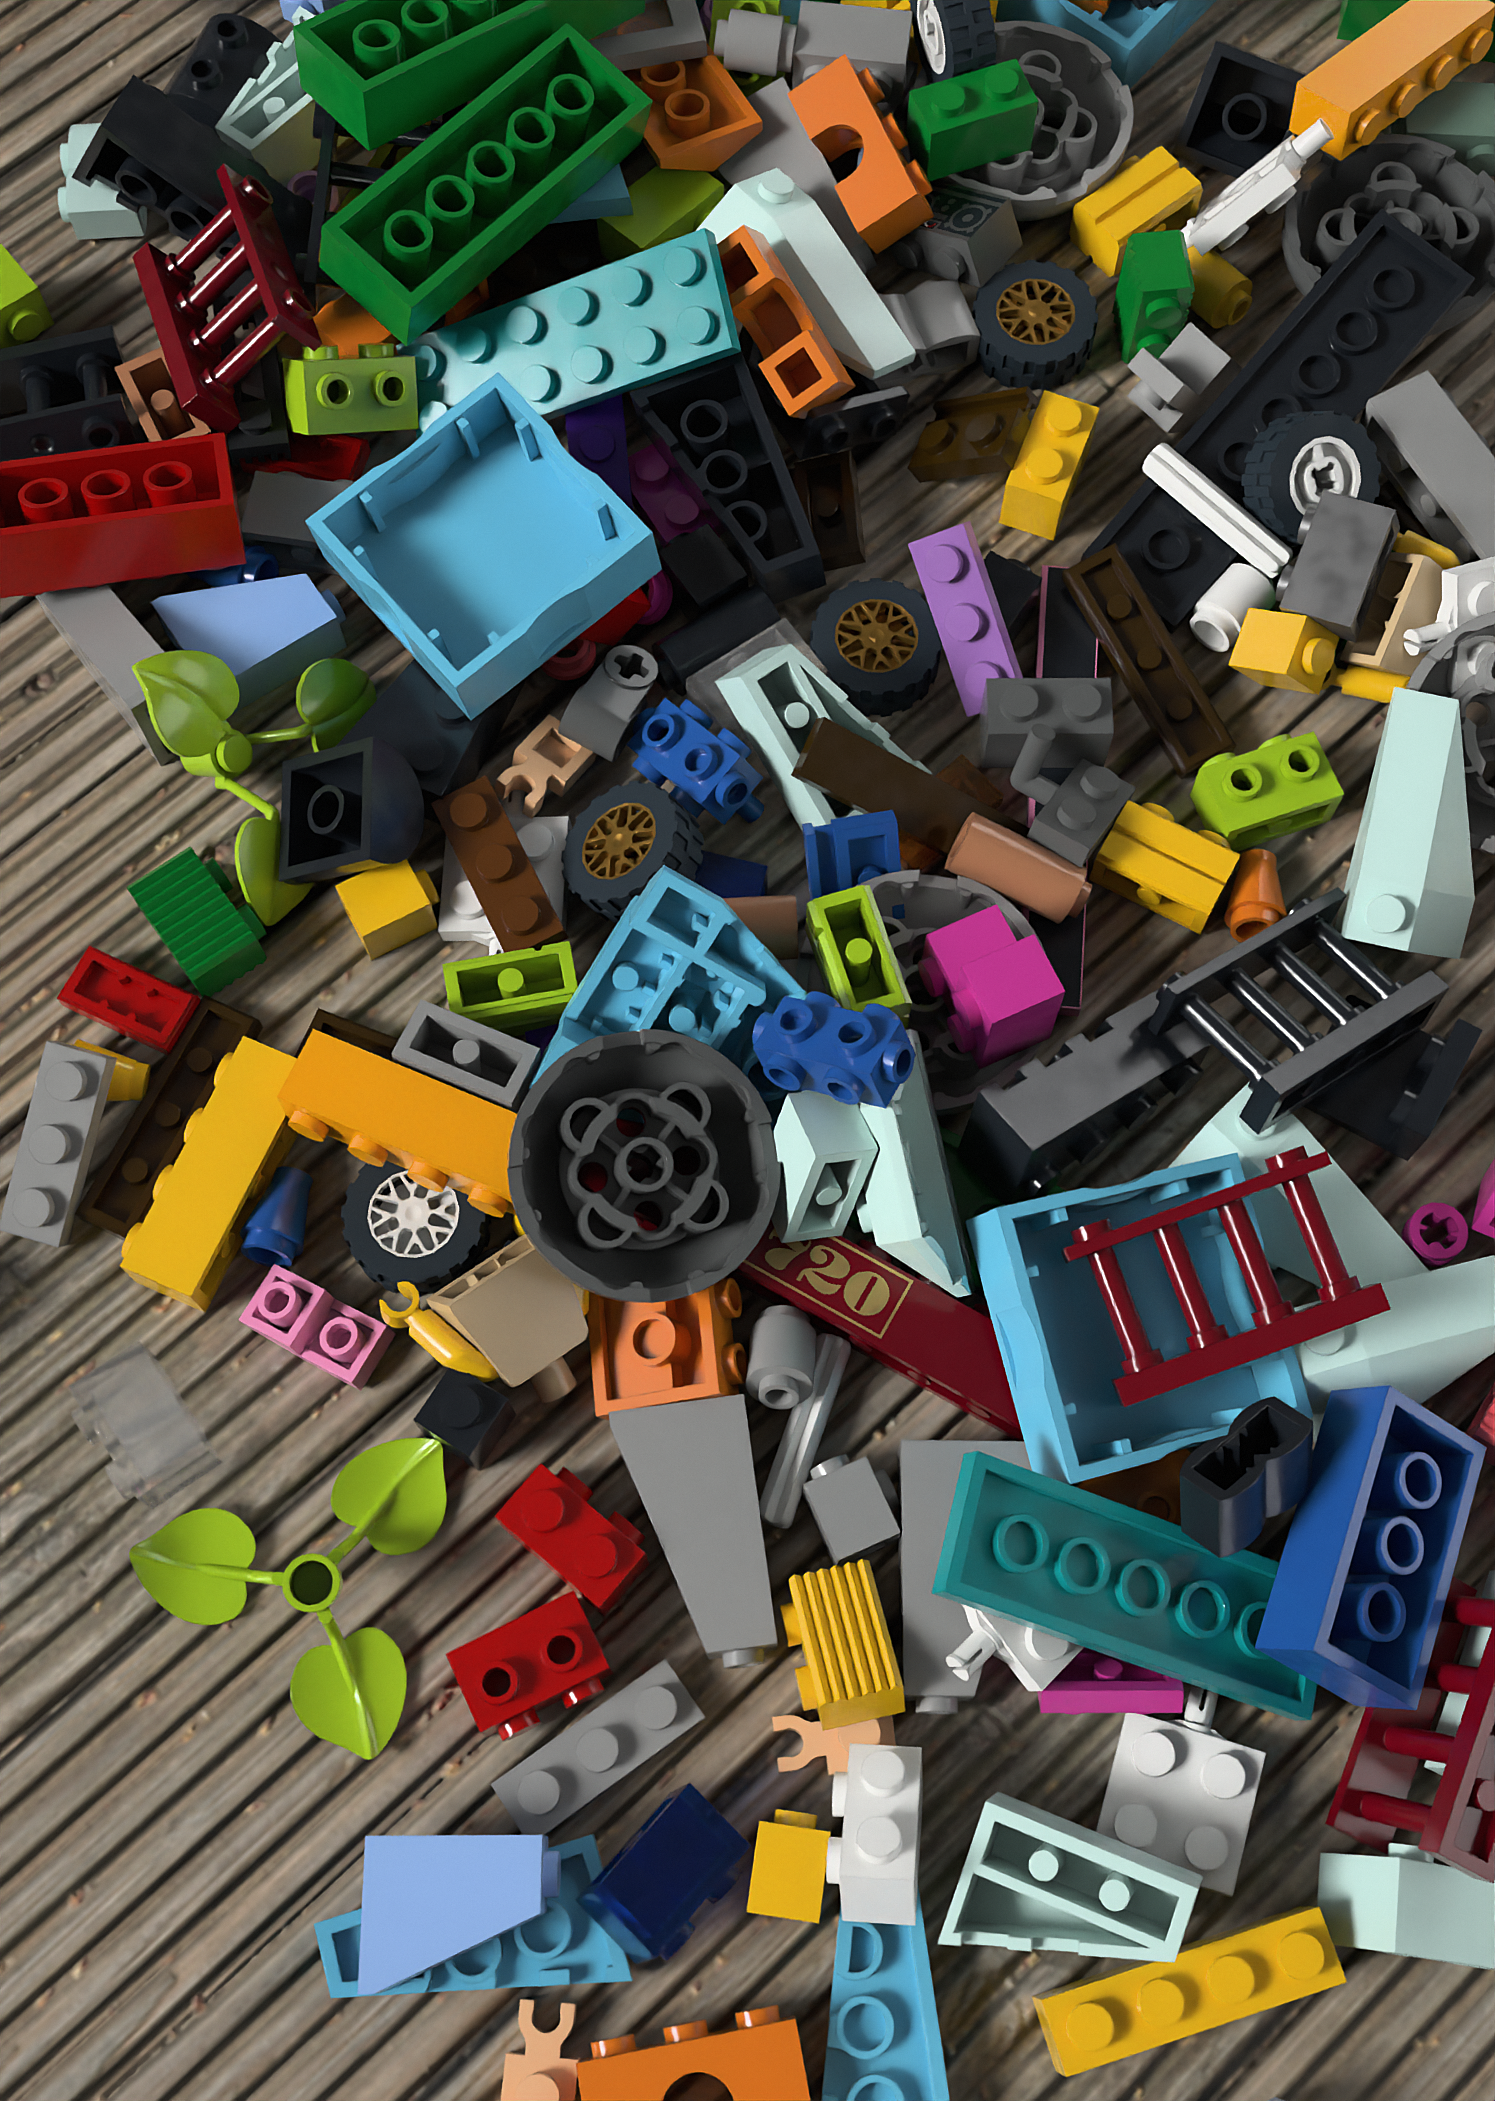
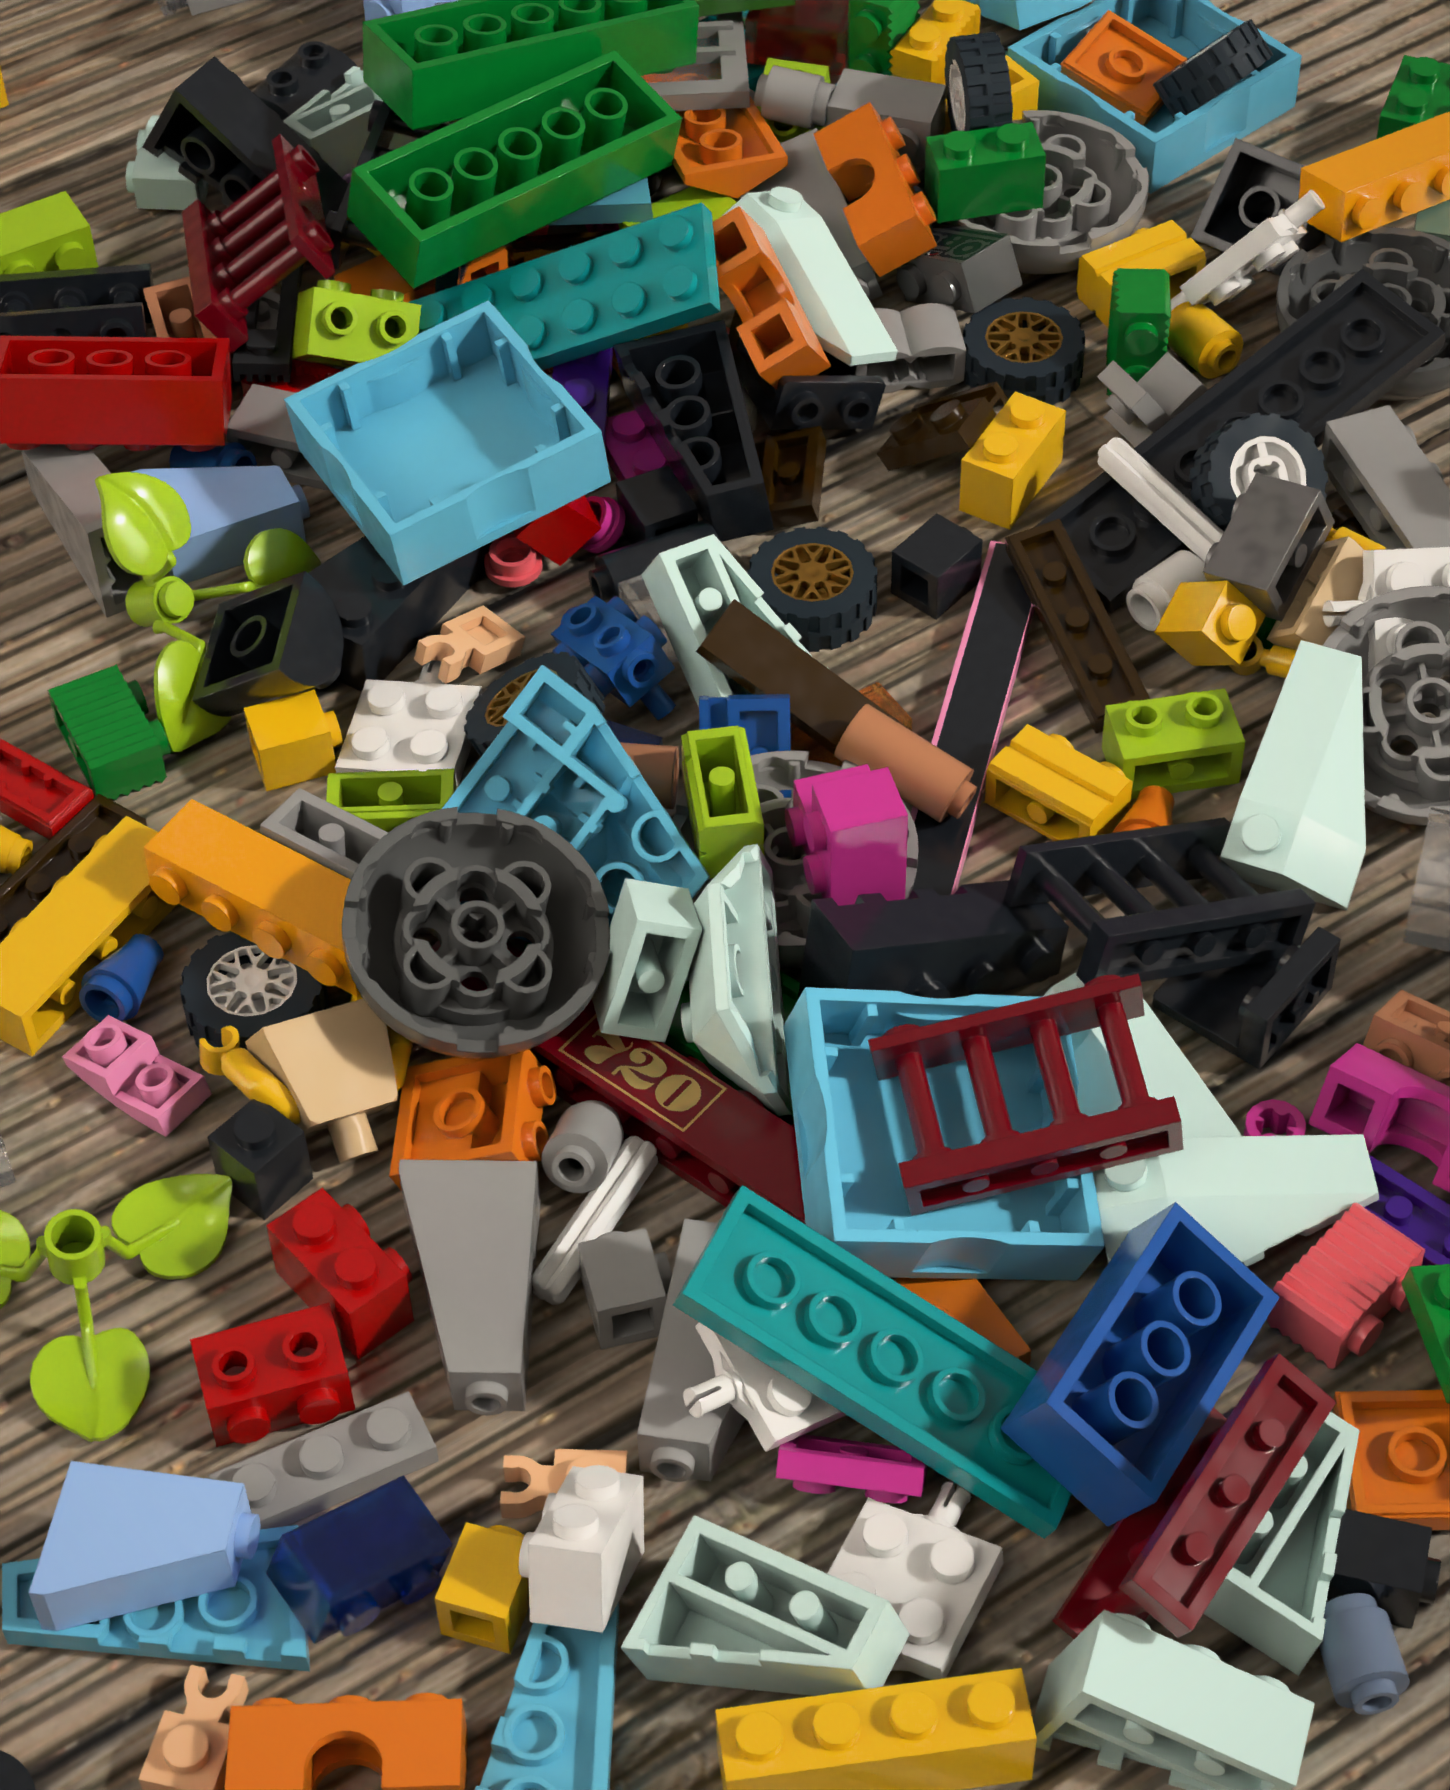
camera: 10 degrees right, 20 degrees down
(498, 868) = (401, 706): reddish brown plate -> none
(610, 702) = (540, 595): dark grey piece -> none
(834, 1049) = (675, 839): blue brick -> none
(845, 1646) = (587, 1391): yellow brick -> none
(965, 611) = (902, 563): medium lavender plate -> none
(1073, 707) = (959, 653): dark grey brick -> none
(1077, 811) = (970, 727): dark grey plate -> none
(1246, 1476) = (1016, 1267): black brick -> none

